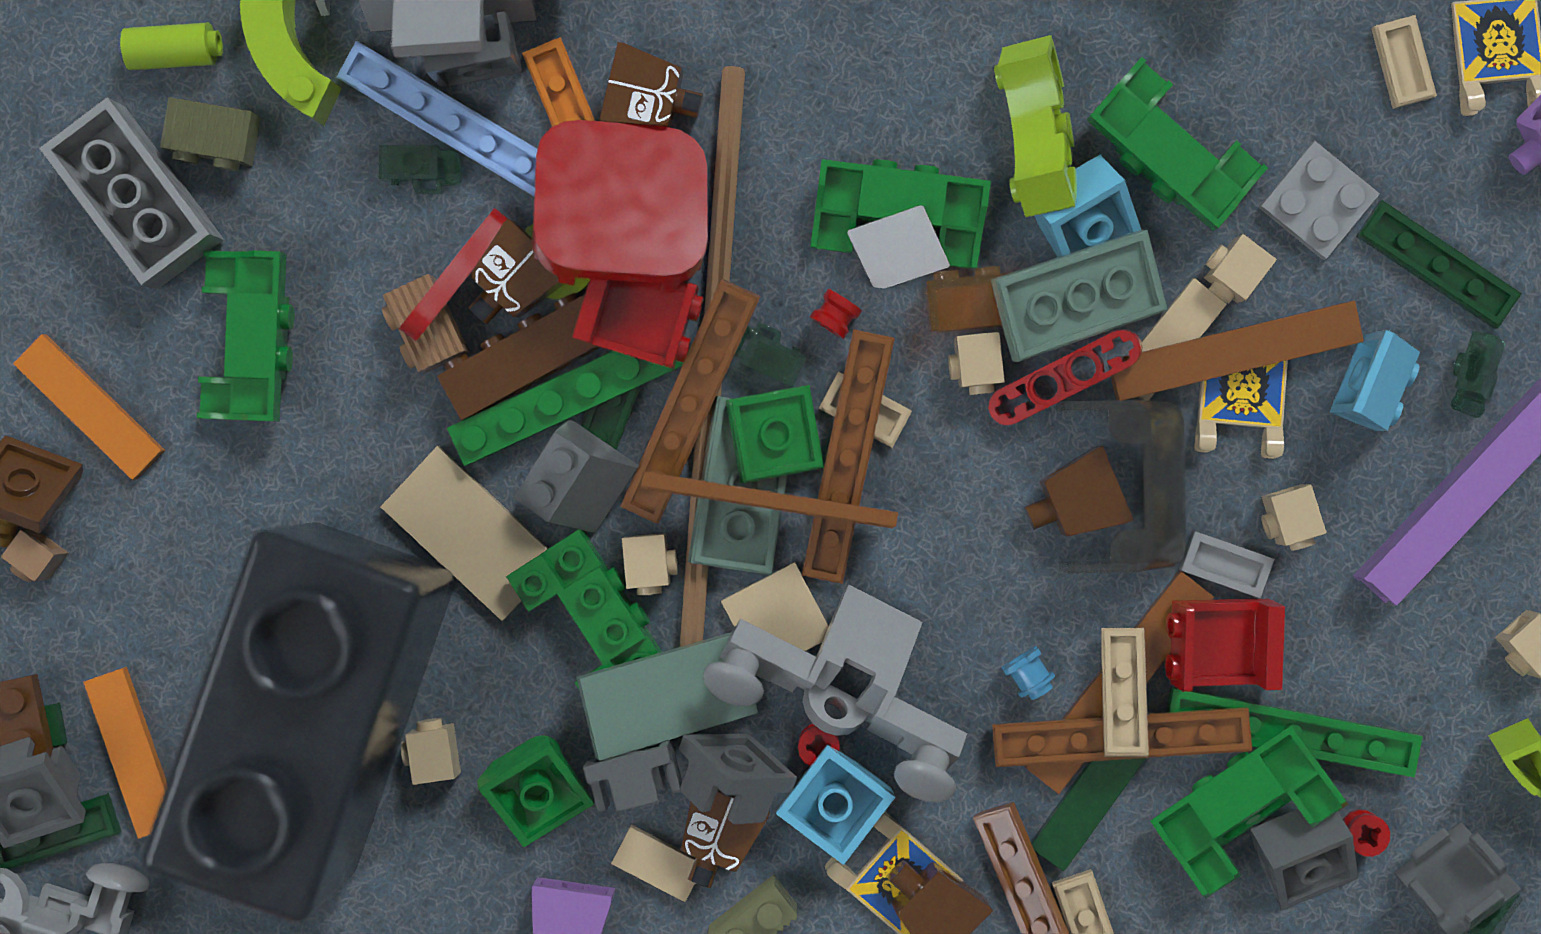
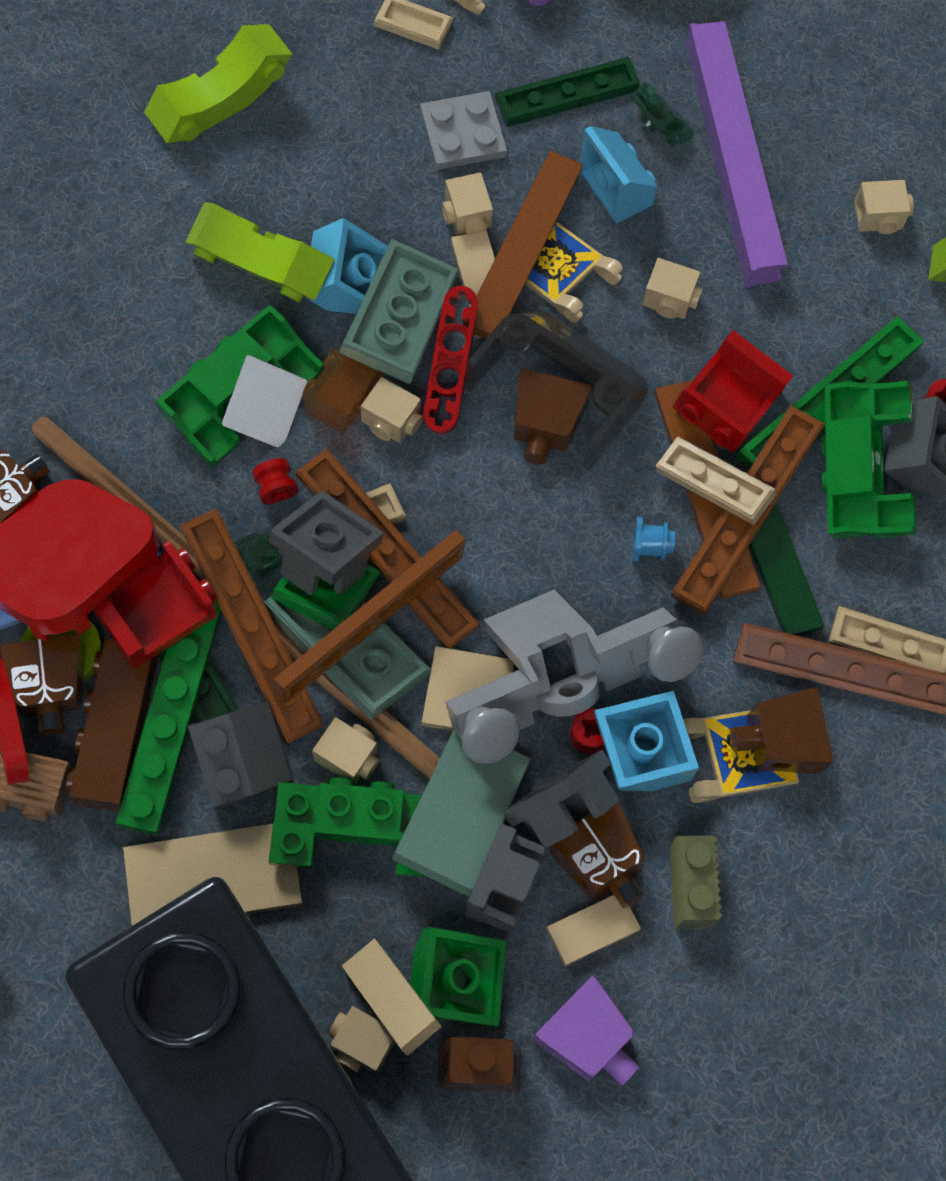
camera: 60 degrees left, 20 degrees down
(475, 754) = (391, 997): none -> tan tile
(478, 857) = (479, 1065): none -> reddish brown torso
(800, 412) = (325, 543): none -> dark grey panel
(1168, 154) = (350, 189): green bracket -> none
(1226, 564) = (674, 357): light grey tile -> none

